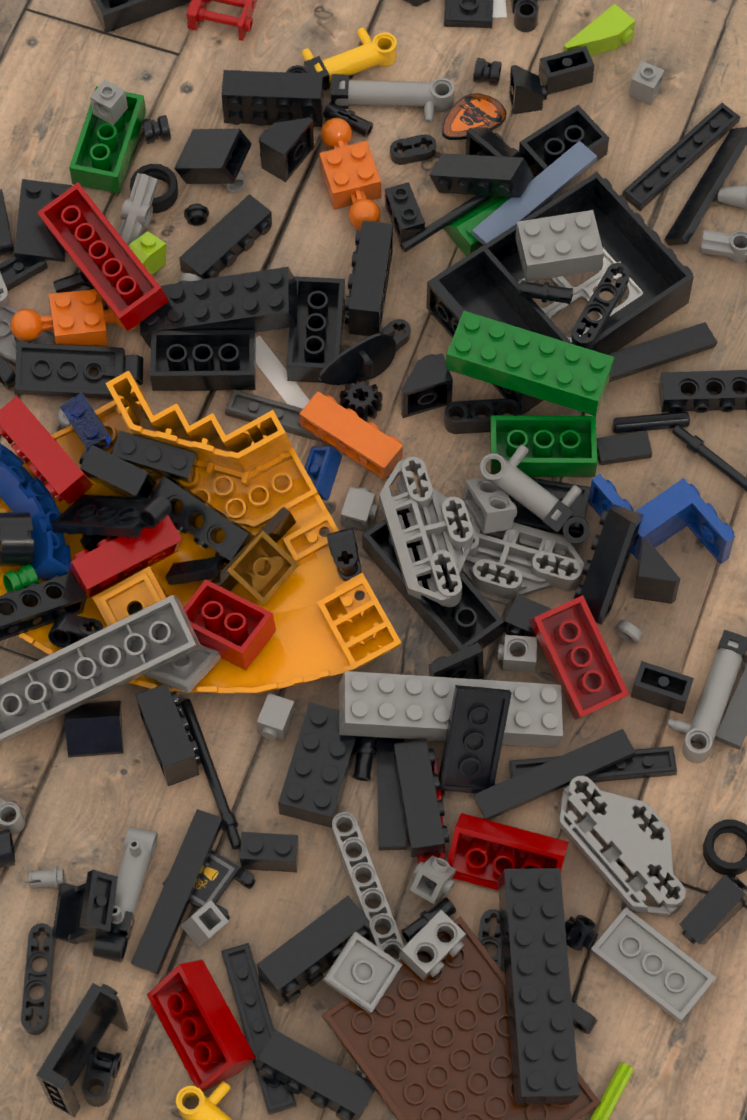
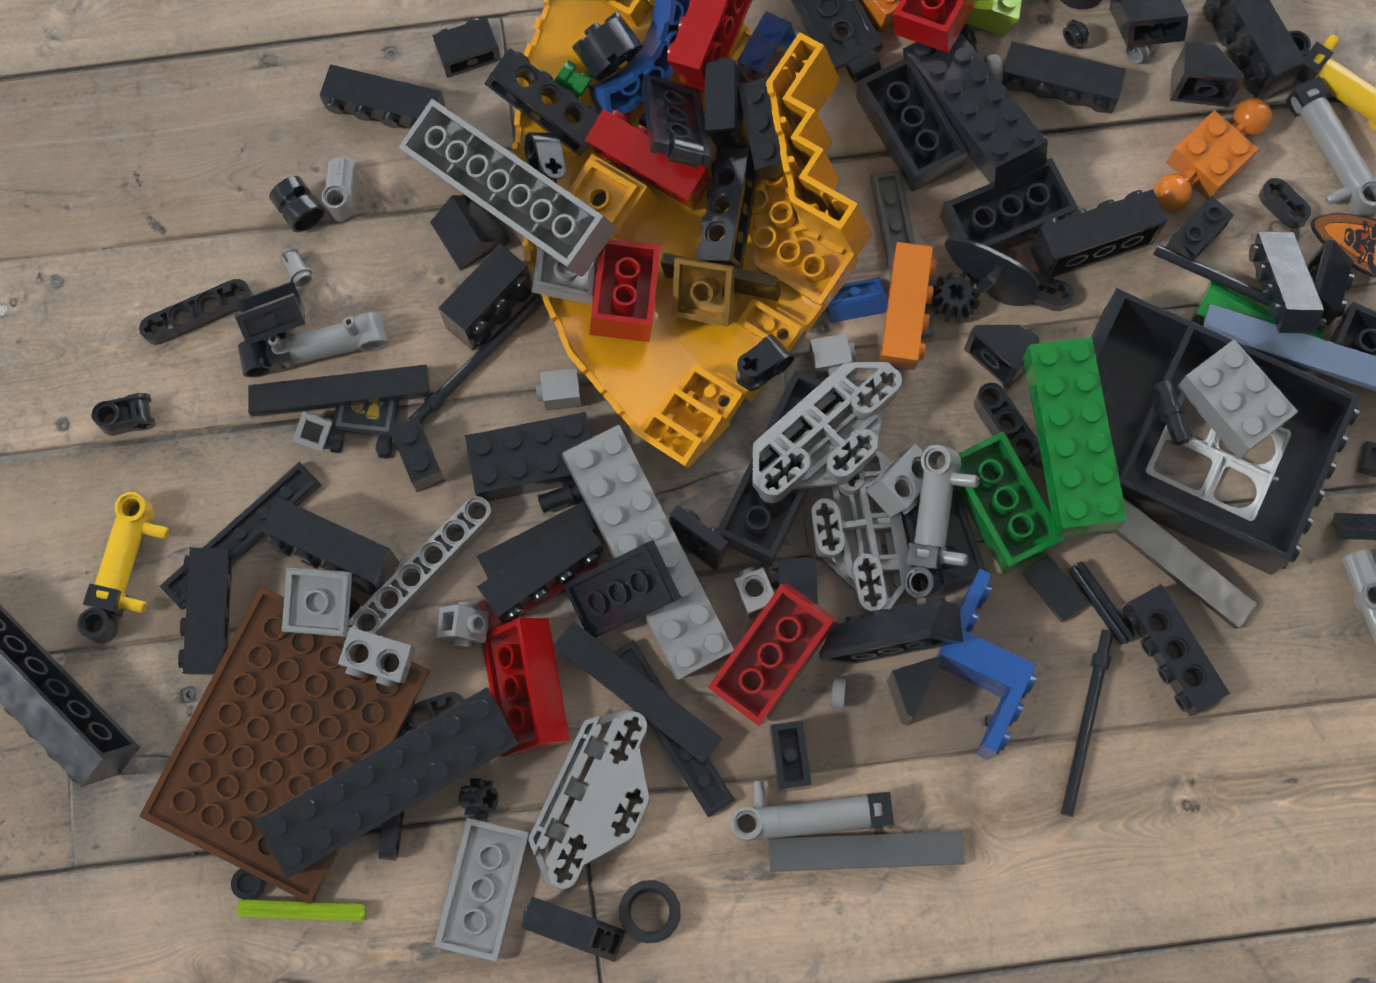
camera: 65 degrees right, 10 degrees up
(72, 1049) = (113, 372): black panel -> none
(194, 570) = (672, 232): black tile -> none
(200, 1025) = (216, 480): red slope -> none
(277, 375) = (951, 187): white sticker -> none
(356, 123) = (1280, 137): black pin -> none
(425, 916) = (423, 642): black pin -> none
(603, 307) = (1191, 481): black beam -> none

